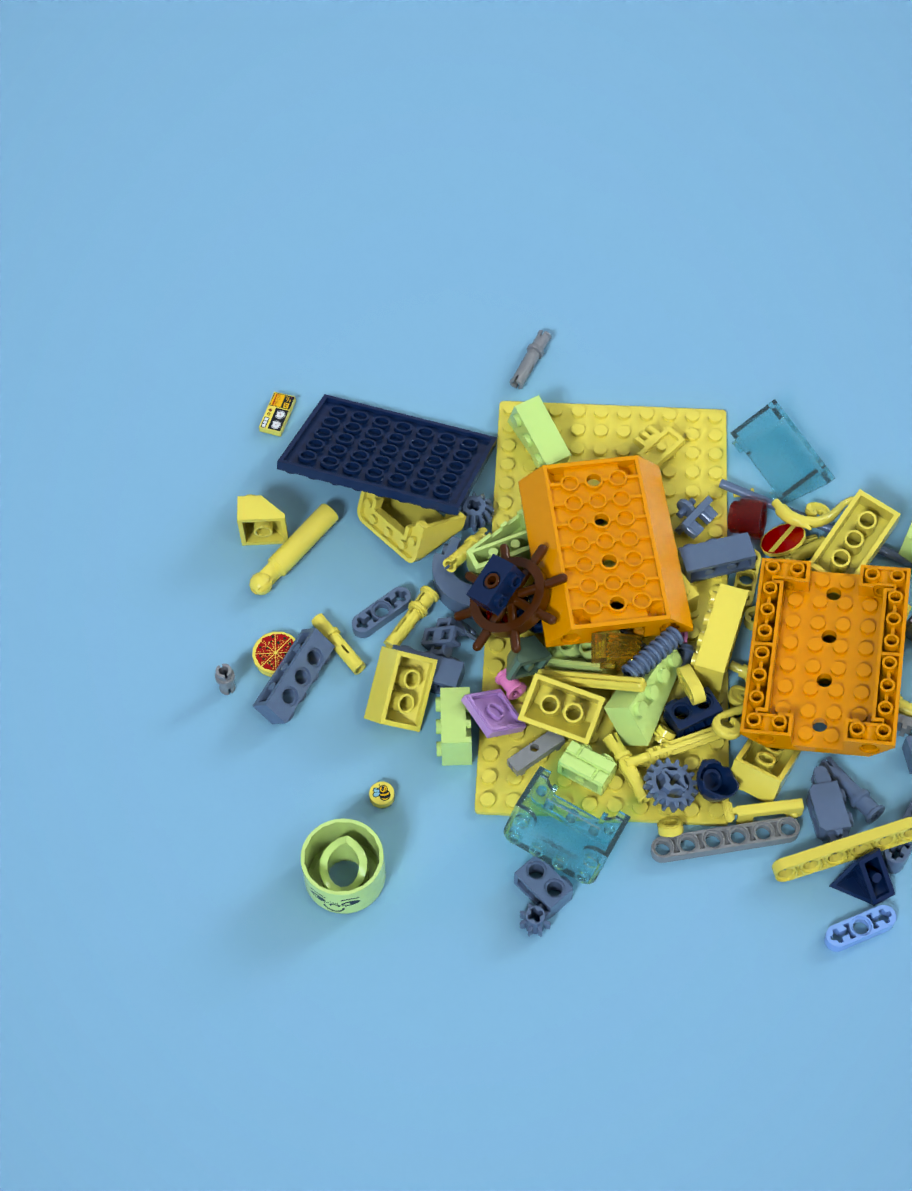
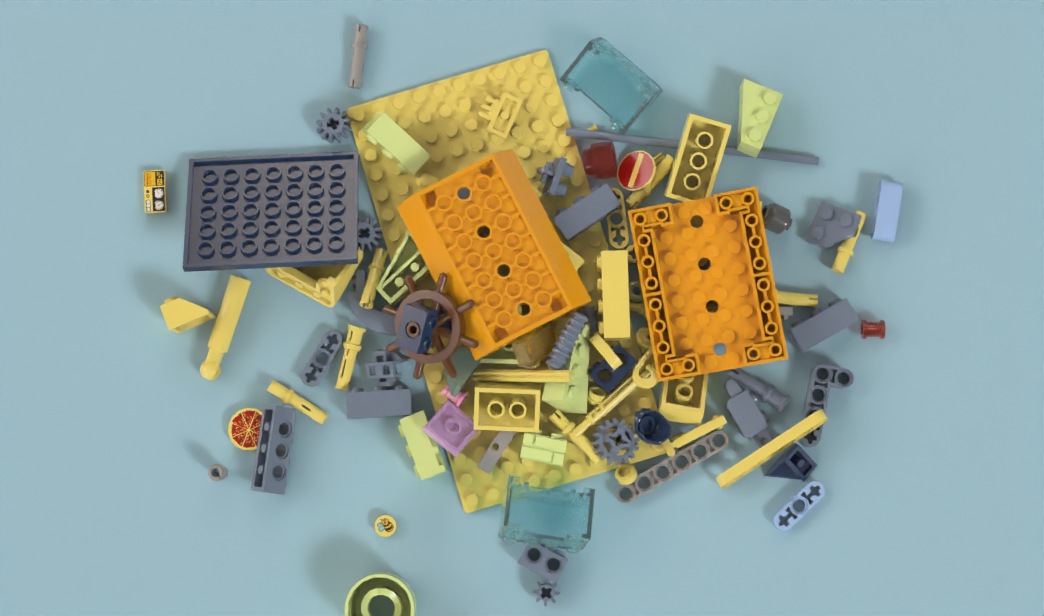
camera: 15 degrees left, 25 degrees up
(400, 689) = (367, 434): light yellow slope -> none
(482, 408) = (328, 132): none -> sand blue gear
(743, 647) = (636, 298): none -> yellowish green plate
(812, 509) = (654, 130): light yellow plant -> none

